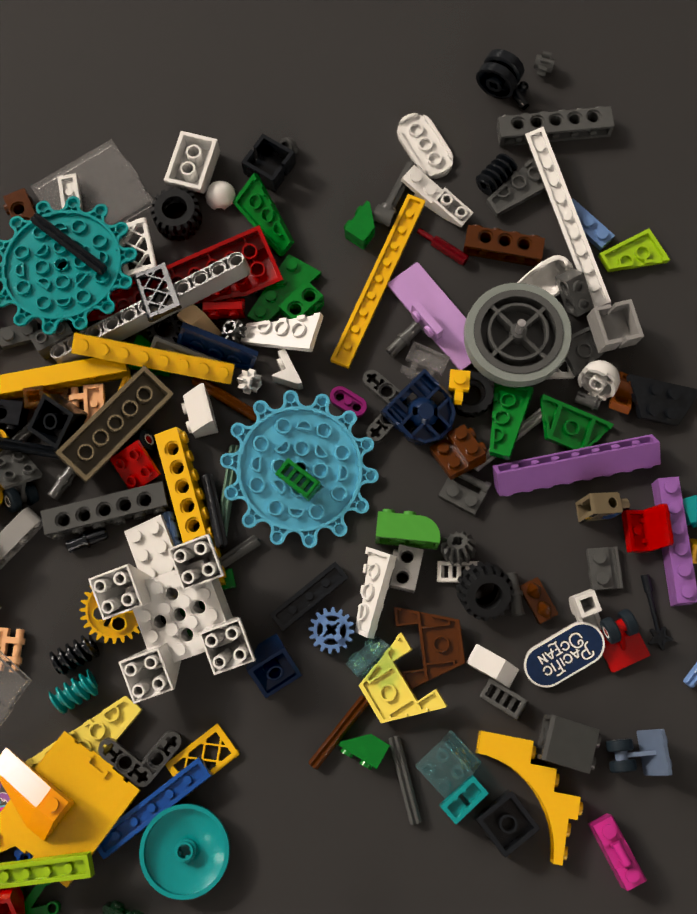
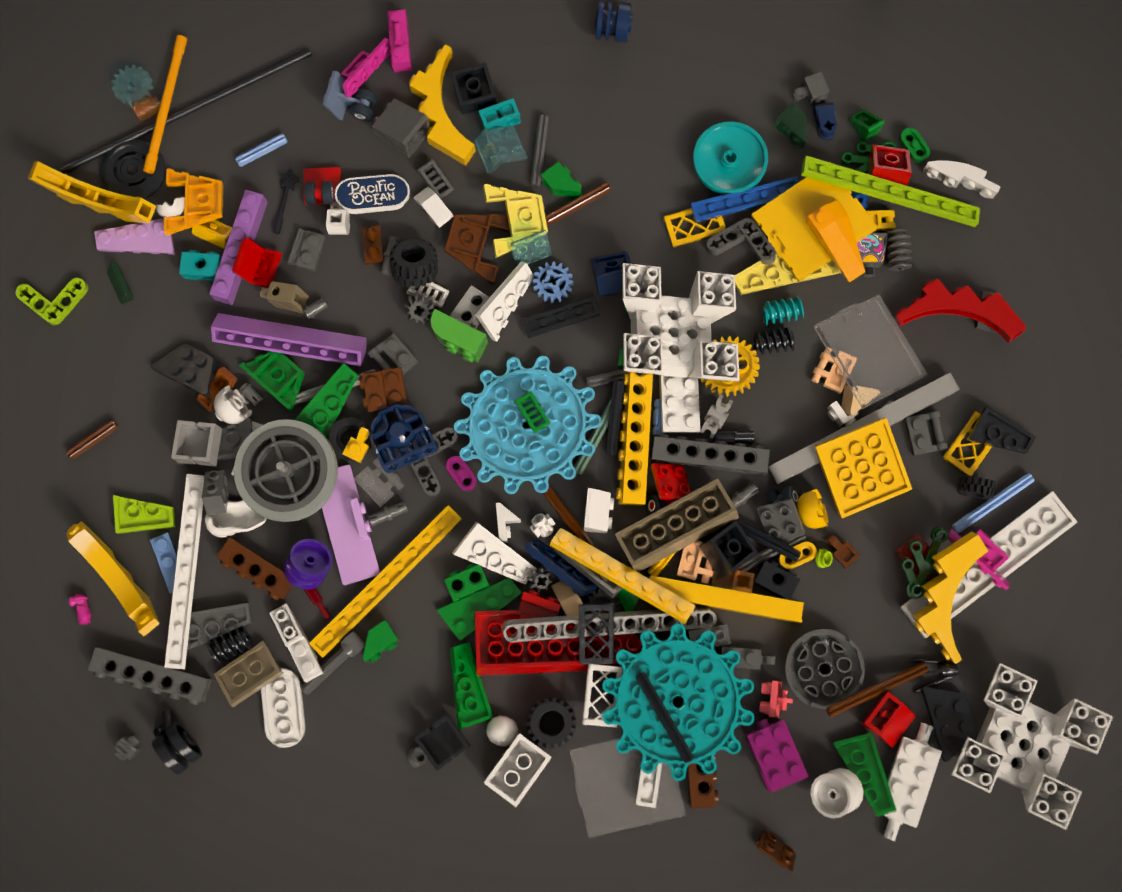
camera: 160 degrees left, 5 degrees up
(109, 548) = (716, 416): none -> light grey pin
(467, 156) = (248, 674): none -> dark tan plate
(468, 259) = (308, 564): none -> dark purple wheel
(566, 509) = (314, 308): none -> dark grey pin
(625, 189) = (102, 559): none -> yellow arch
(643, 798) = (363, 66): none -> dark pink bracket
(645, 158) = (83, 611): none -> dark pink arm

